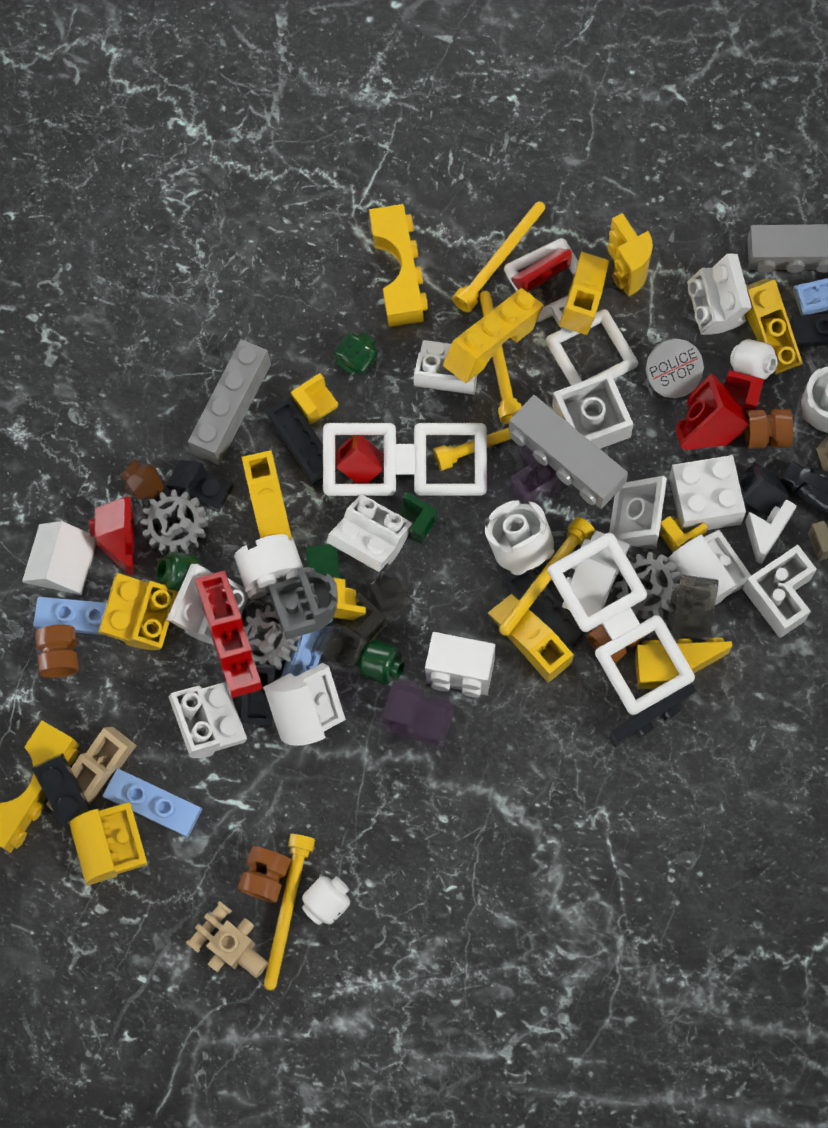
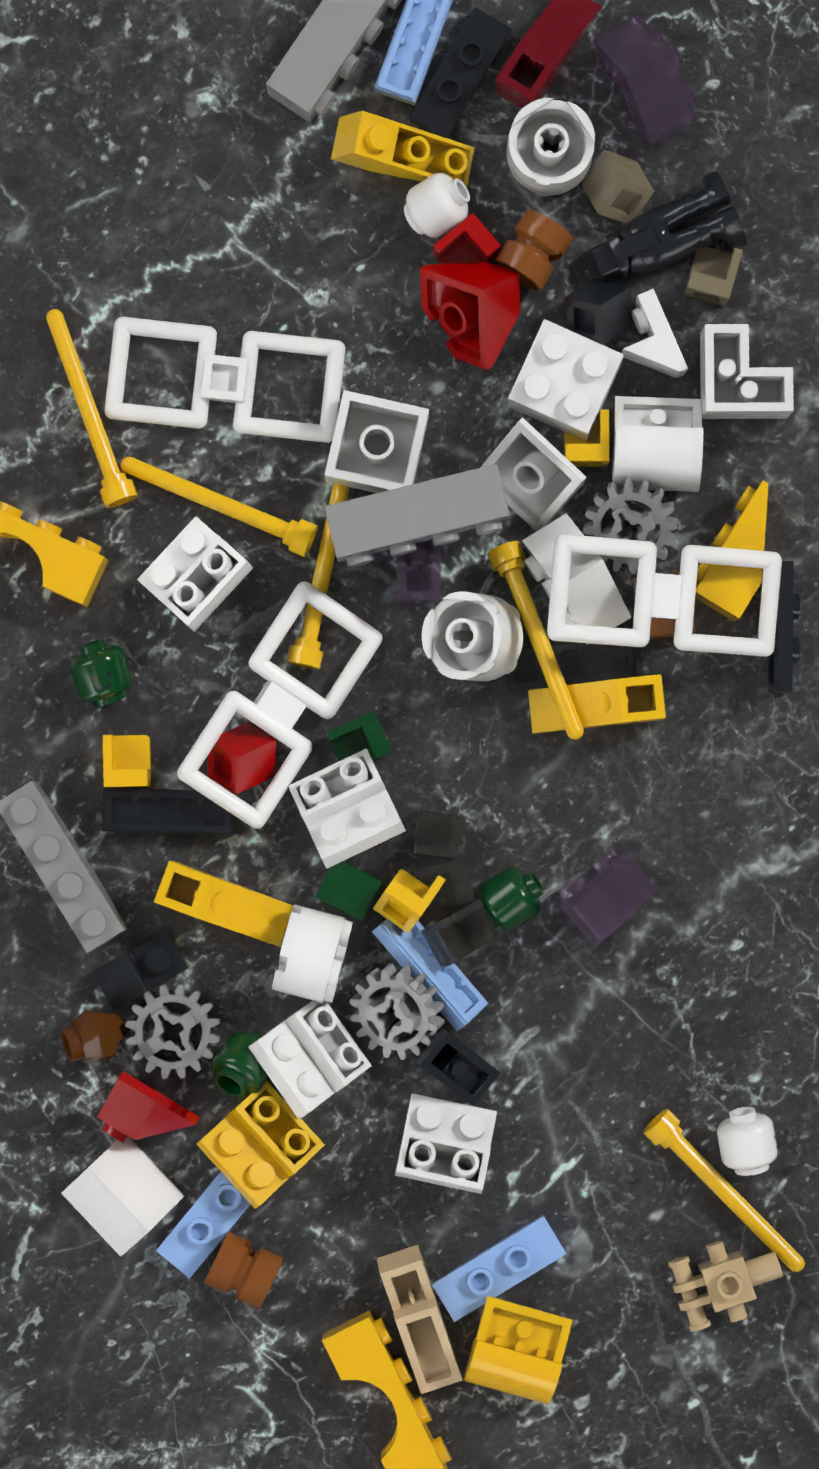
camera: 60 degrees left, 15 degrees up
(61, 788) = (422, 1367): black plate -> none
(228, 634) = (371, 1060): red slope -> none
(255, 882) = (680, 1207): dark orange wheel -> none
(304, 602) = (392, 945): dark grey slope -> none
(304, 705) = (510, 1022): white brick -> none
(459, 664) = (582, 810): white brick -> none
(476, 345) = (202, 497): yellow arch -> none
(543, 270) = (145, 374): red slope -> none
(584, 293) = (216, 345): yellow slope -> none
(630, 254) = (211, 255): yellow brick -> none
(674, 368) = (382, 305): light grey piece -> none
(694, 607) = (697, 497): clear smoke bracket -> none
(719, 296) = (328, 187): white brick -> none

